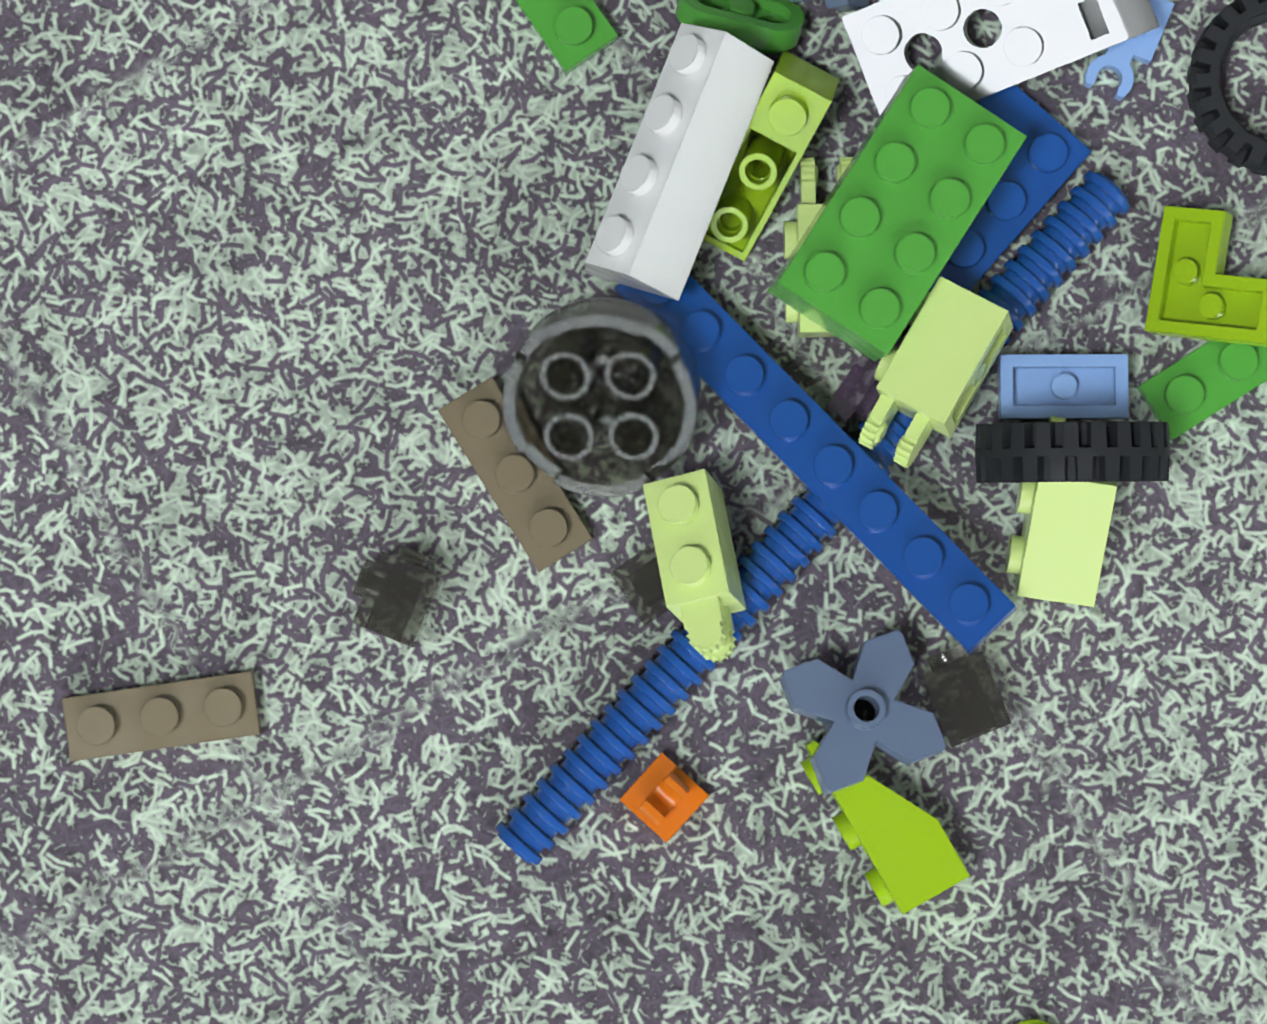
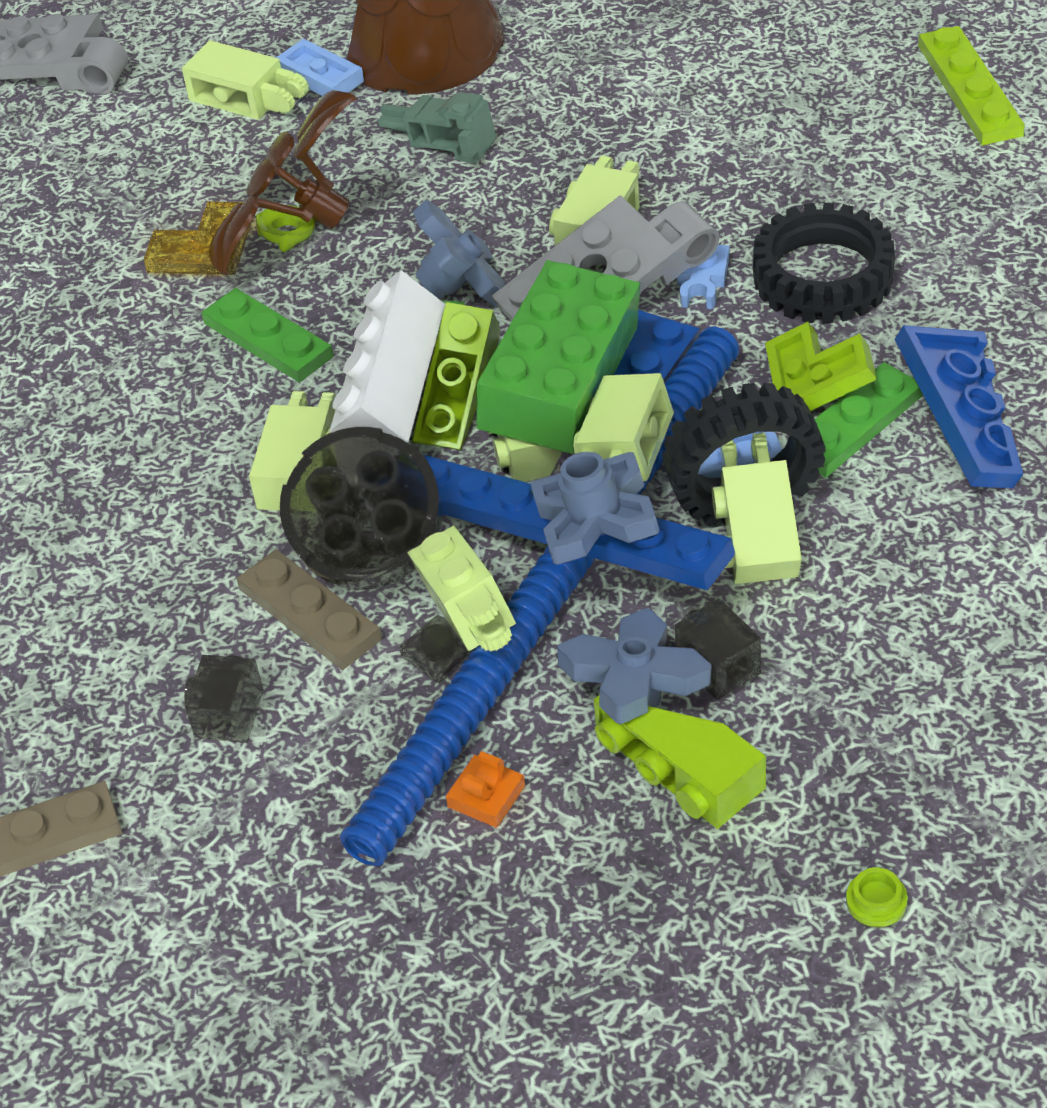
camera: 15 degrees left, 40 degrees down
(541, 226) = (284, 438): none -> yellowish green hinge
(897, 491) = (590, 500): none -> sand blue plant

